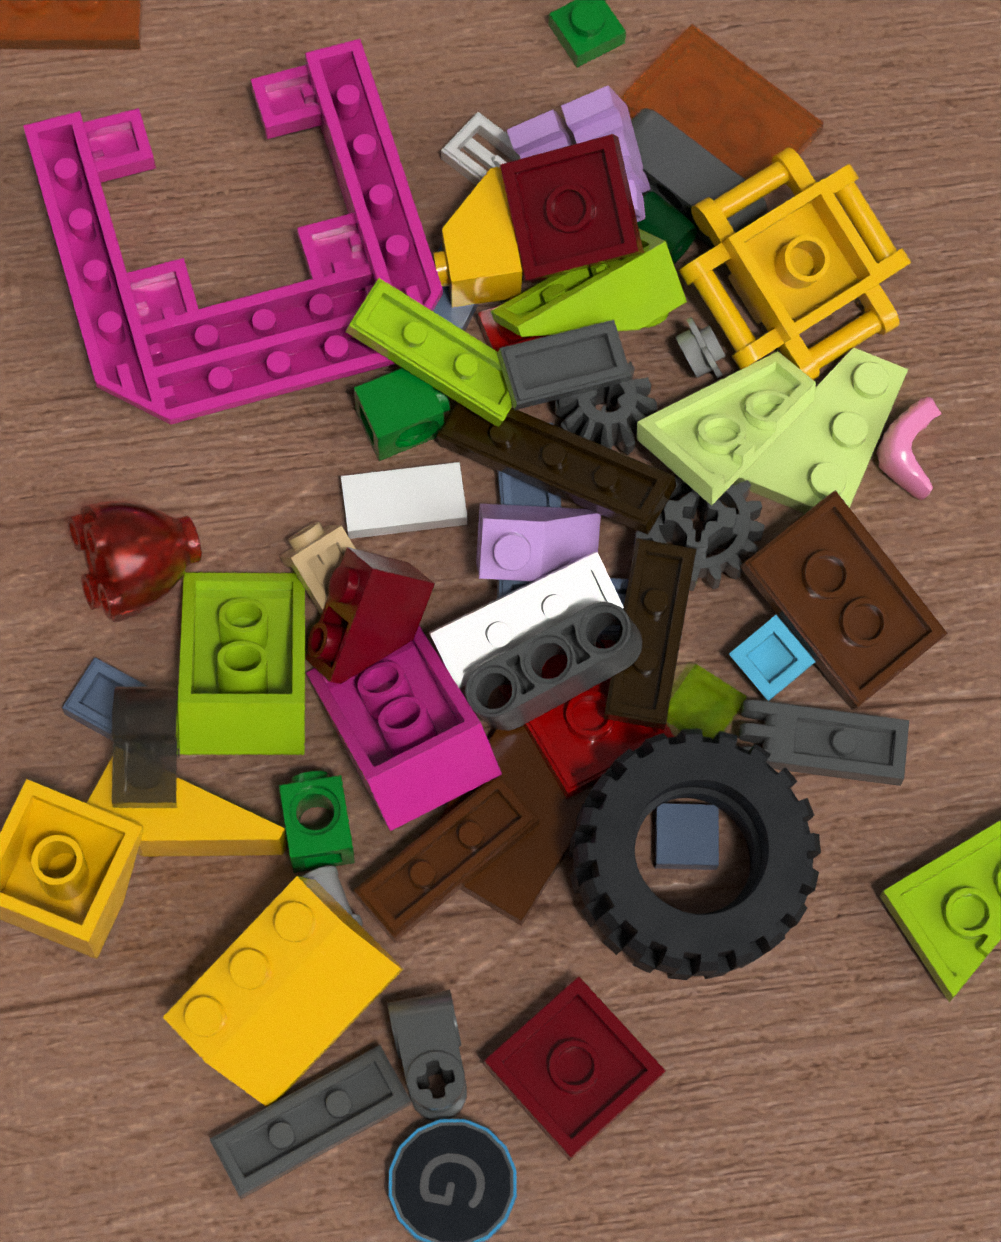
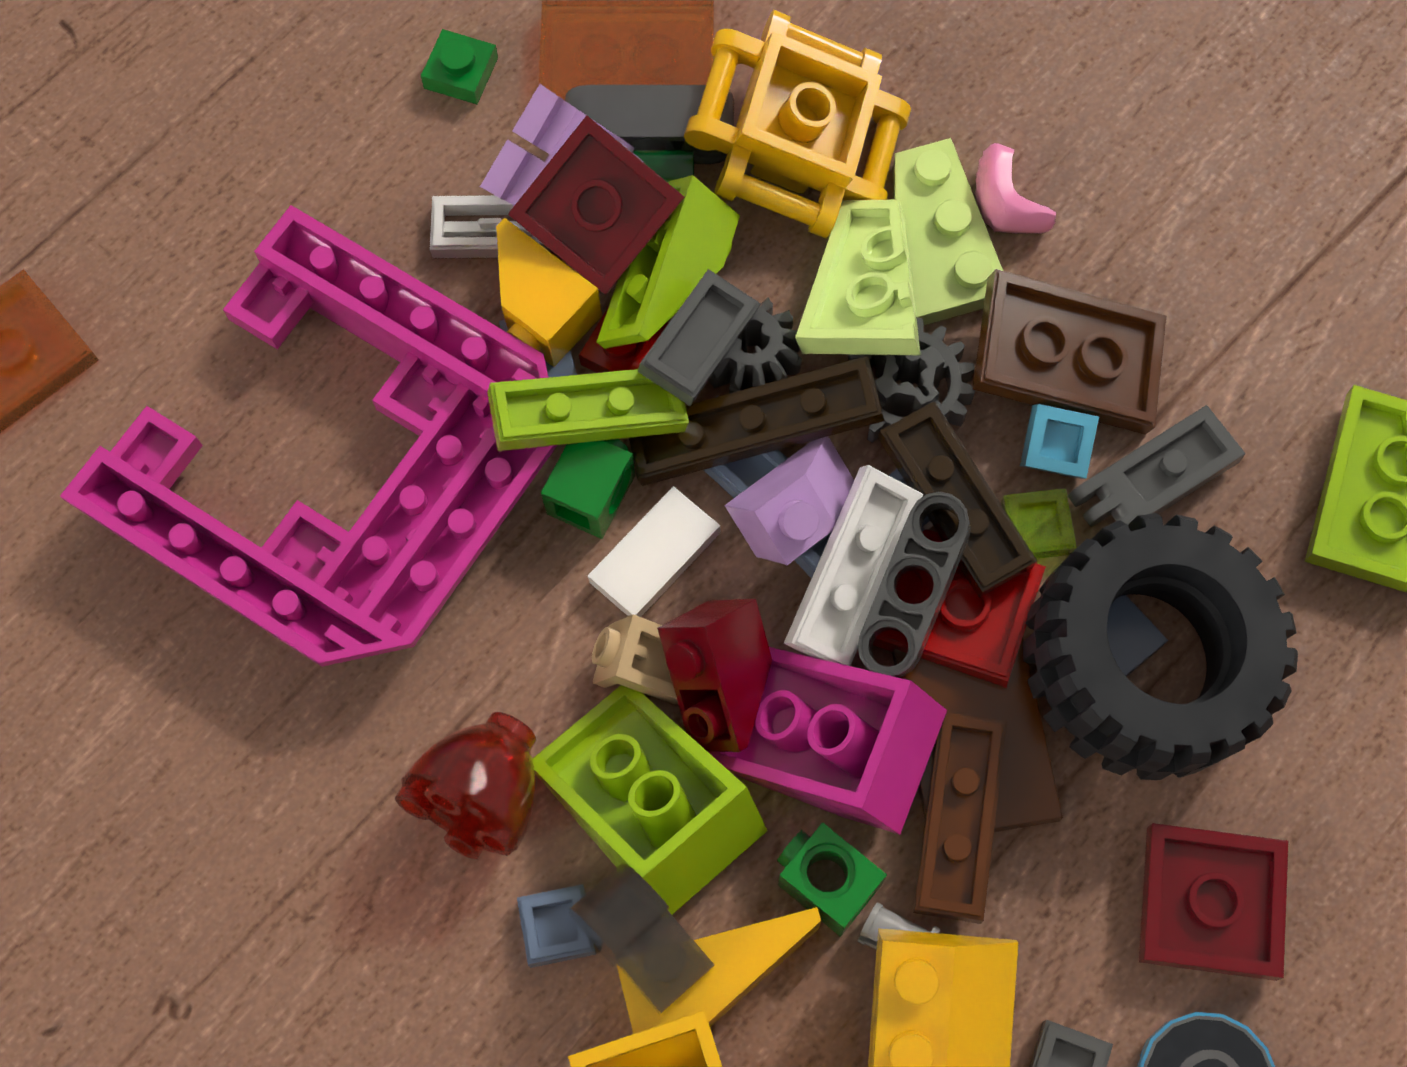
camera: 35 degrees left, 0 degrees up
(429, 1046) = (1084, 979): dark grey piece -> none
(701, 349) = (782, 245): light grey plate -> none

